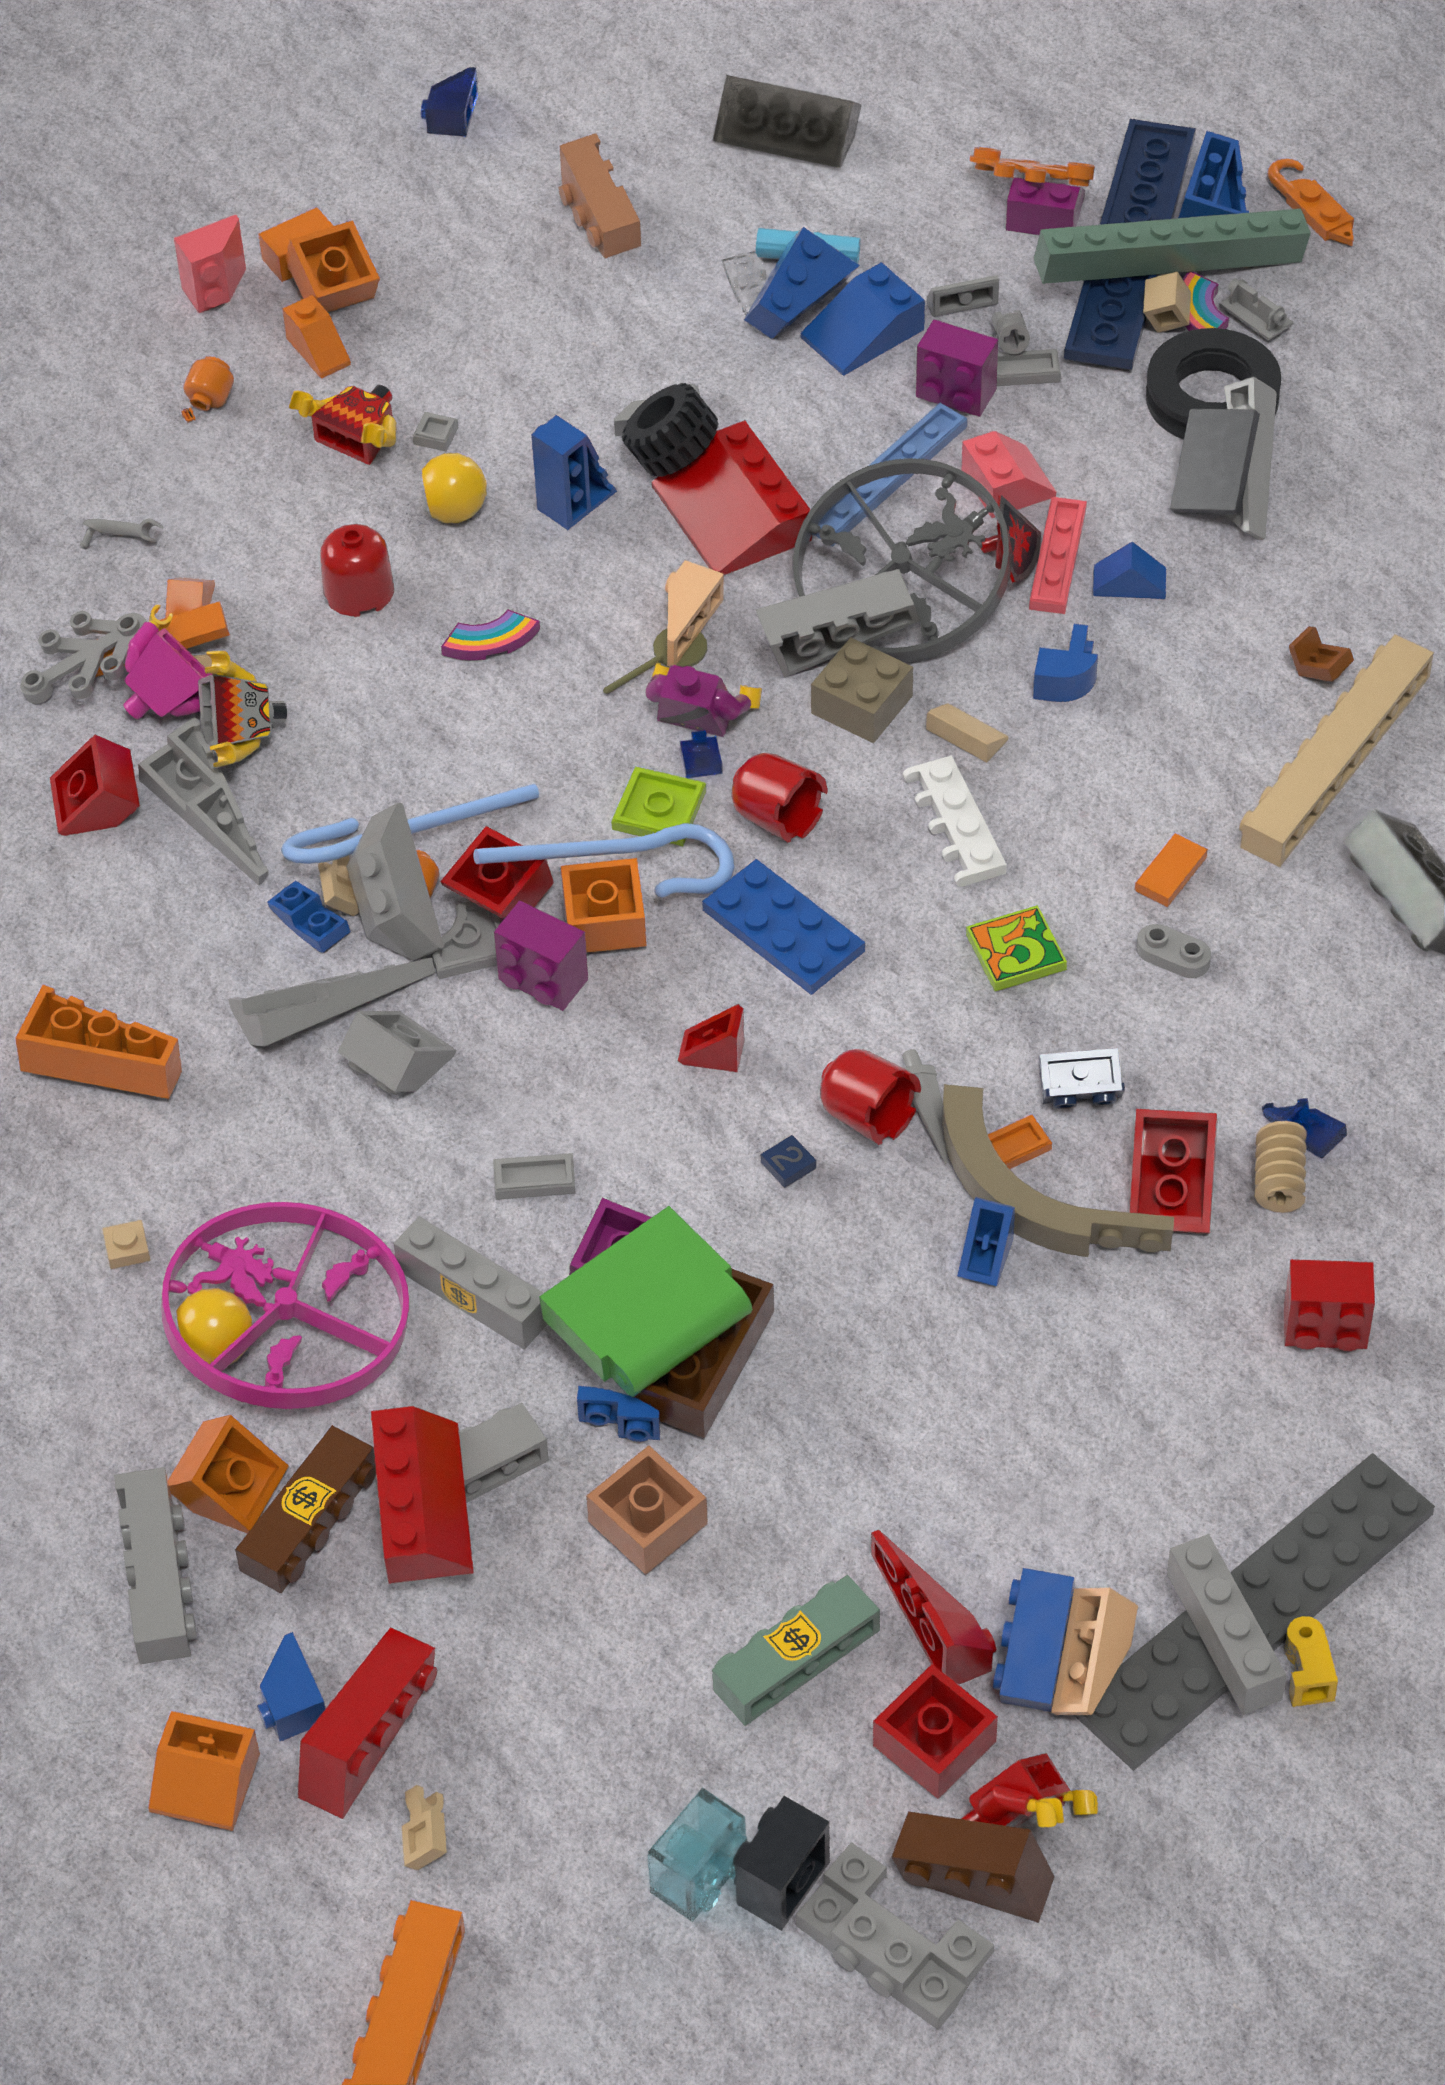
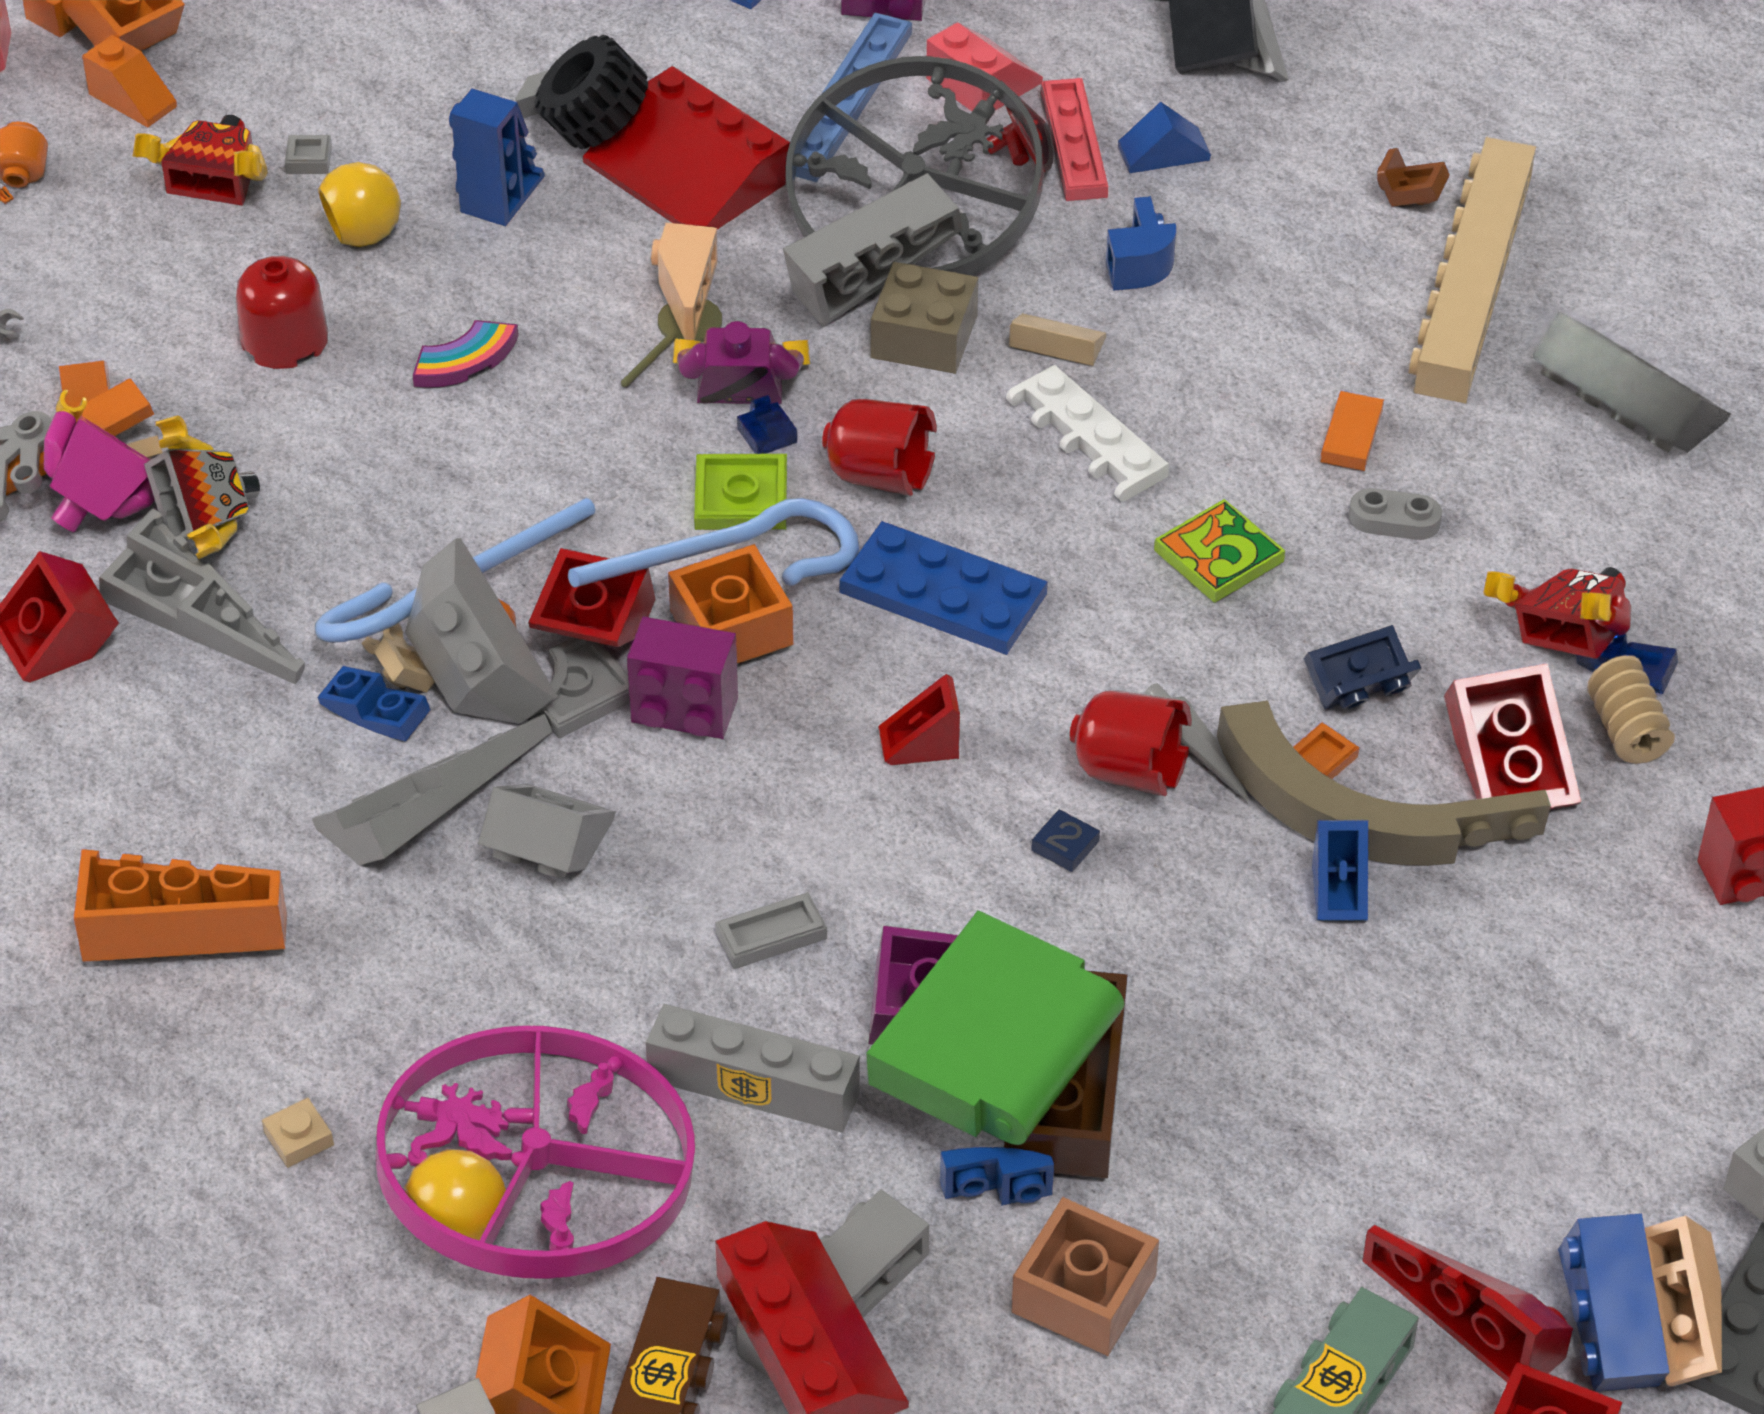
camera: 20 degrees left, 5 degrees down
(1270, 1071) = (1570, 611): none -> red torso

